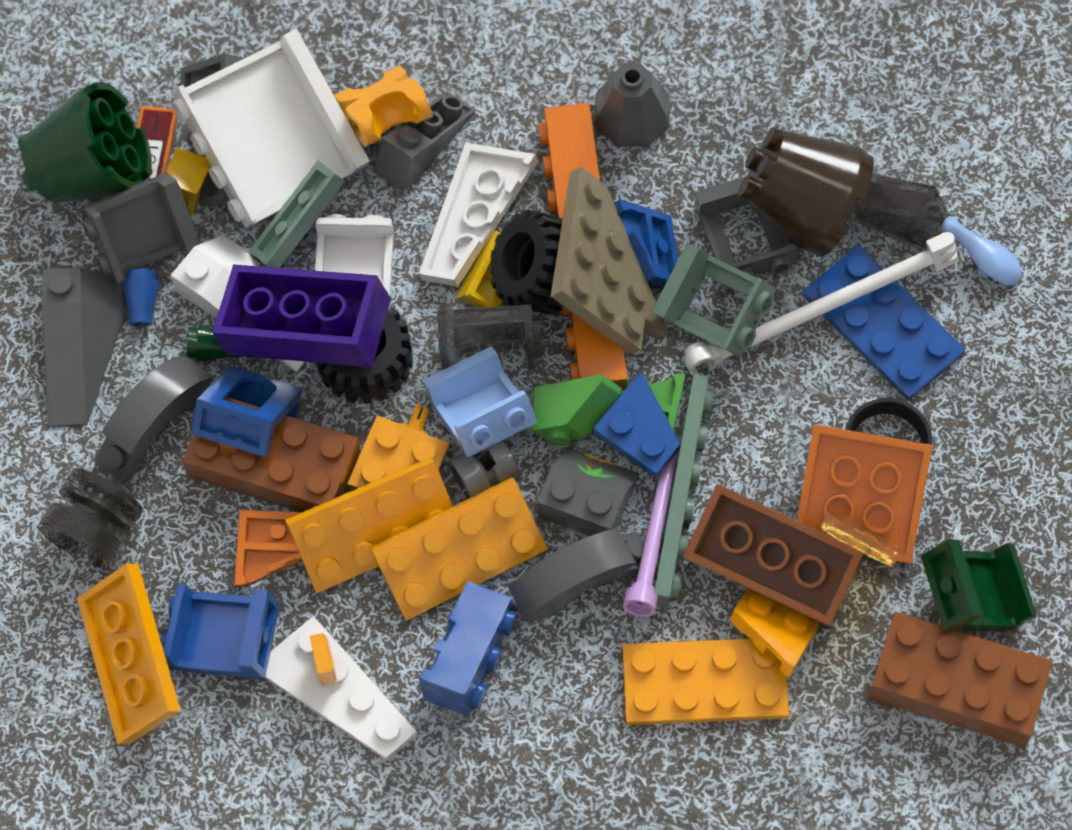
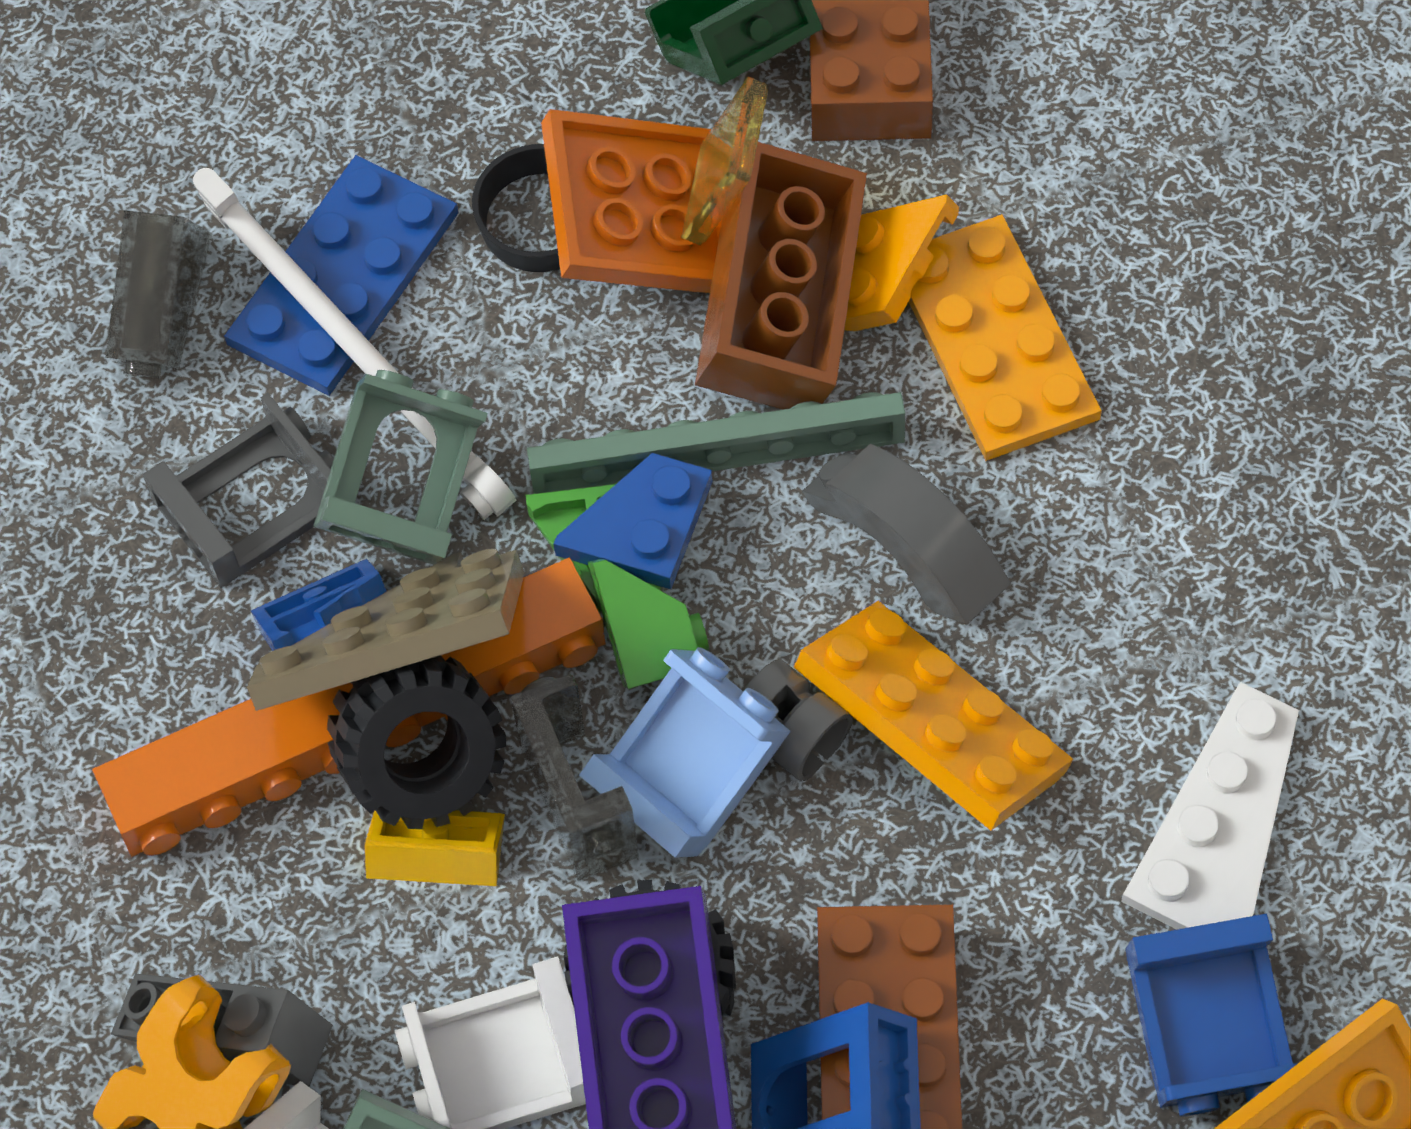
camera: 110 degrees left, 5 degrees down
(263, 545) = (1026, 1001): orange wing -> none
(323, 659) = (1201, 827): light orange tile -> none
(339, 533) = (948, 850): light orange plate -> none
(396, 447) = (819, 856): light orange plate -> none
(468, 649) = (1092, 642): wedge -> none
(475, 204) = (319, 899): white wing -> none
(585, 493) = (767, 568): dark grey slope -> none
(632, 107) = (69, 720): dark grey cone -> none
(641, 596) = (913, 427): lavender piece -> none
(807, 186) = (173, 372): dark brown cone -> none
(990, 257) = (198, 147): light blue piece -> none

